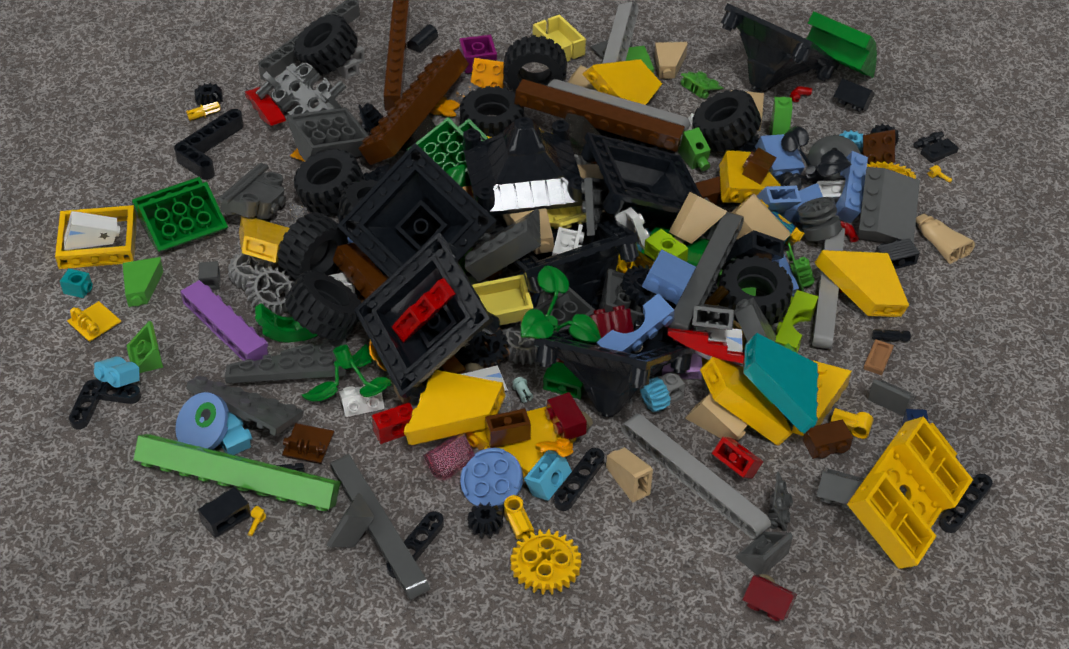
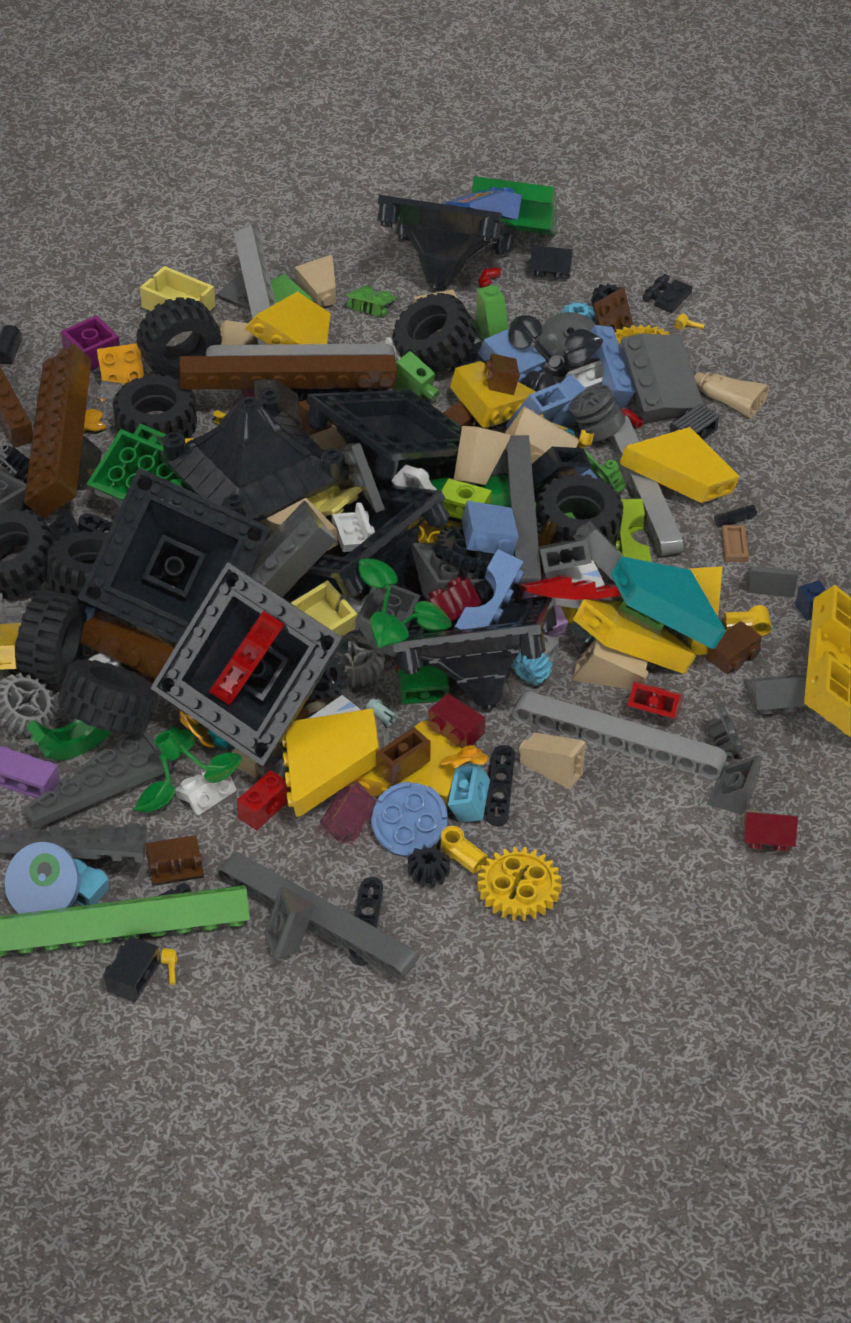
camera: 25 degrees left, 0 degrees up
(821, 34) = (494, 199): none -> blue slope

